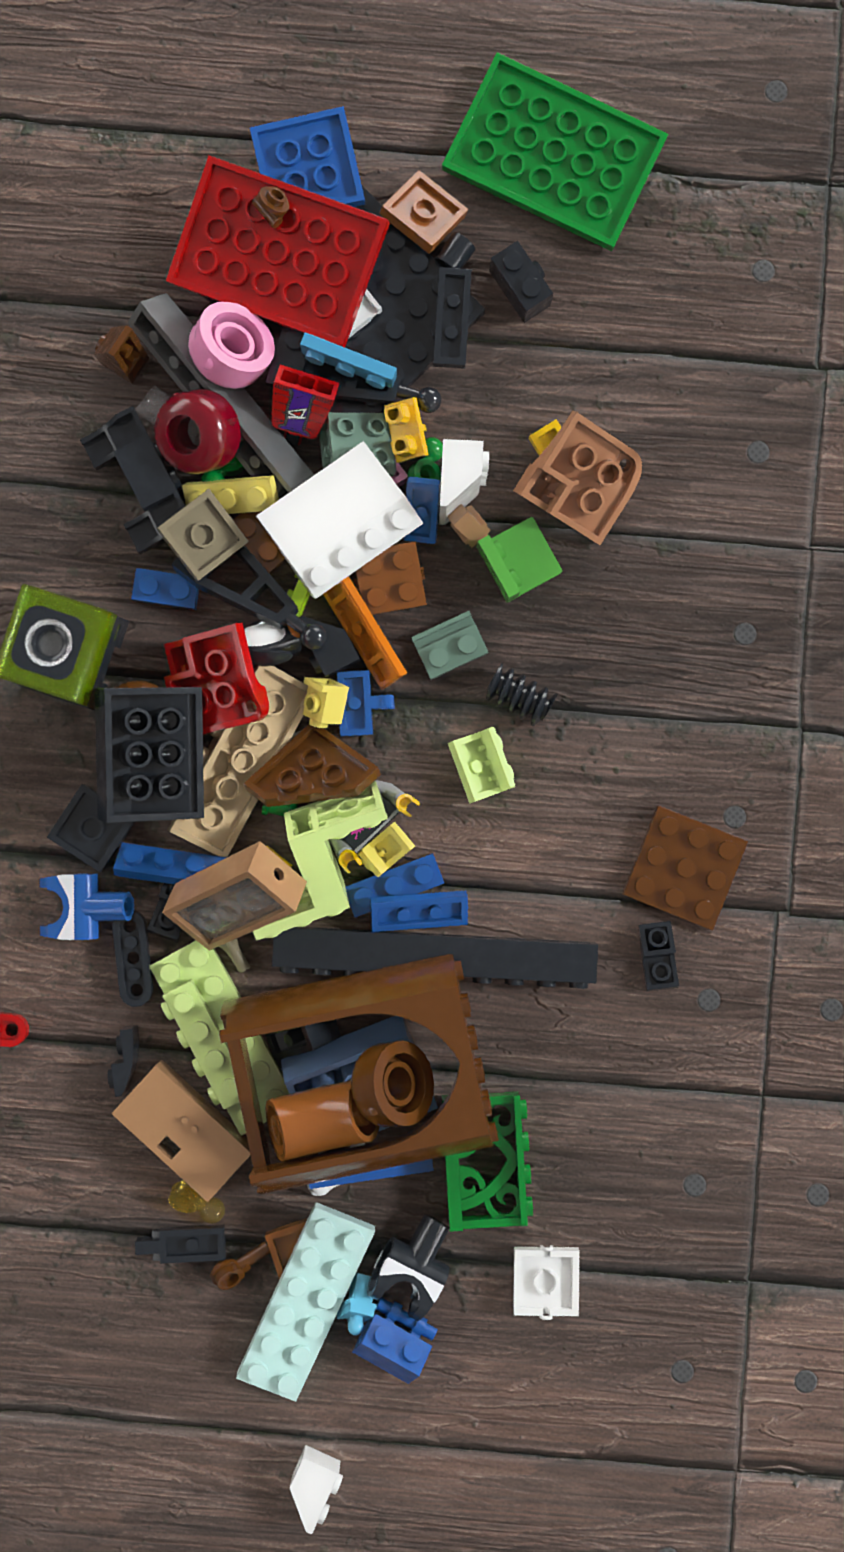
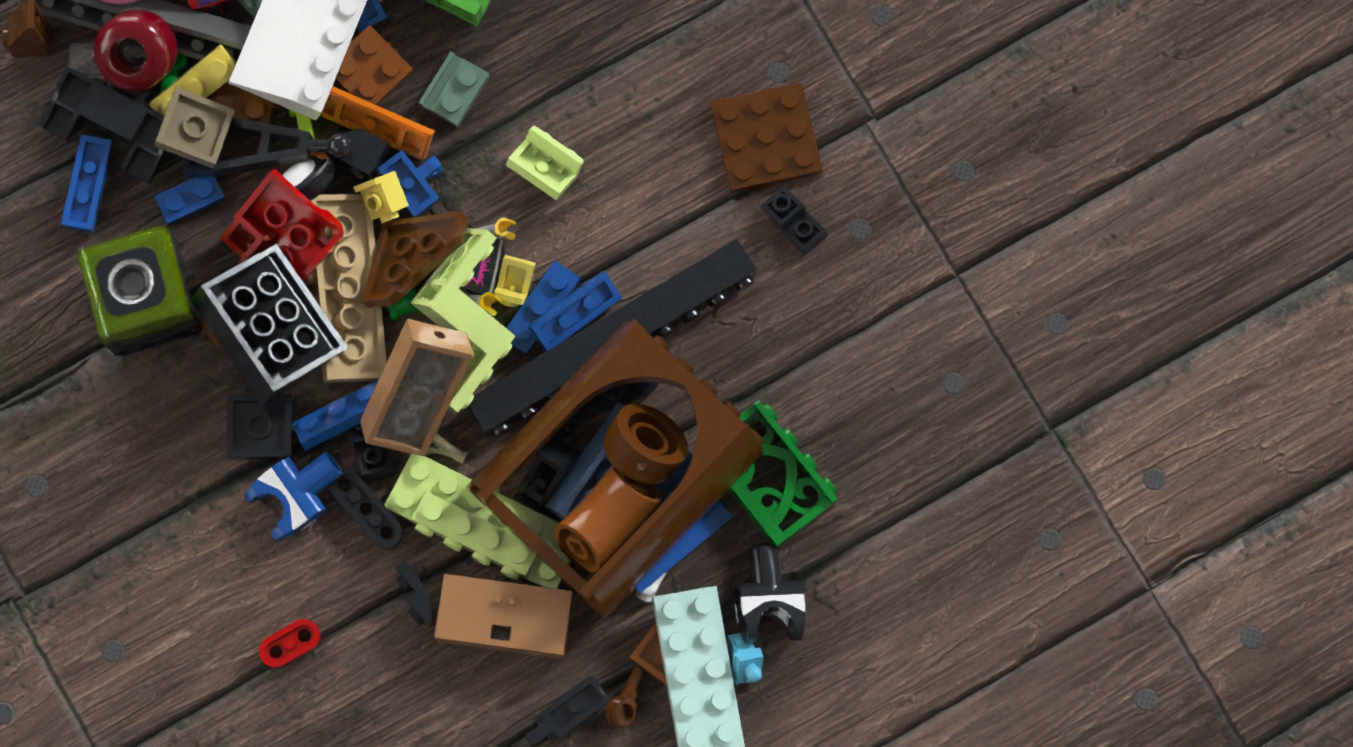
camera: 40 degrees left, 10 degrees down
(87, 518) = (87, 183): none -> blue plate
(187, 1200) = (570, 671): clear yellow plate -> none
(392, 1347) = (797, 670): blue brick -> none
(520, 695) = (537, 89): black piece -> none
(546, 1281) = (885, 538): white plate -> none

